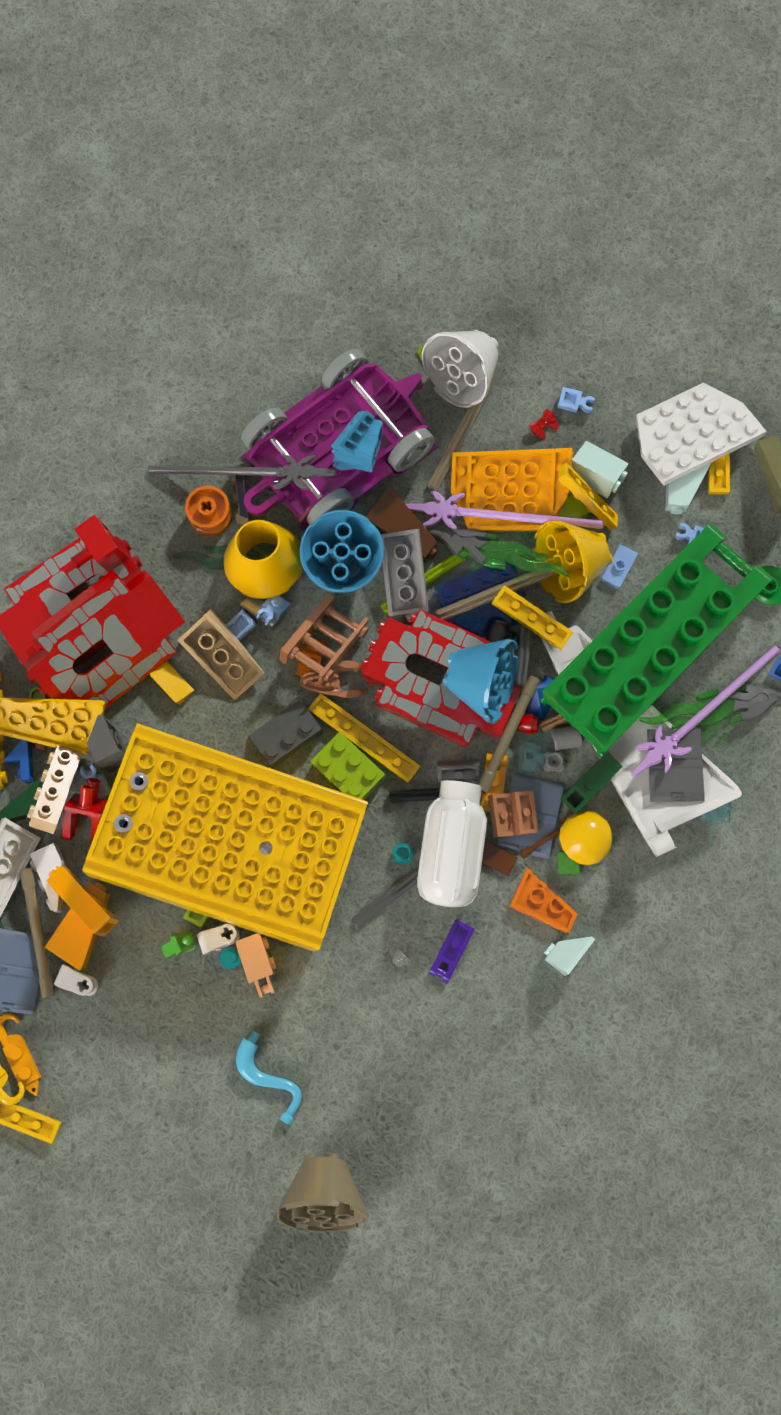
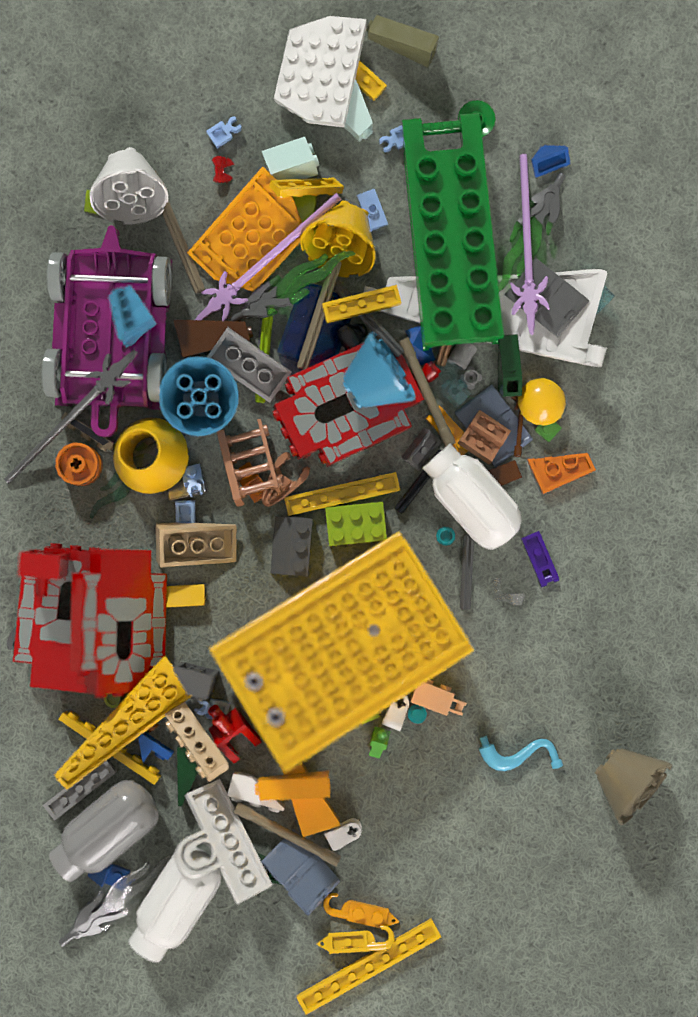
camera: 55 degrees left, 10 degrees up
(567, 953) = (610, 482): light aqua slope -> none

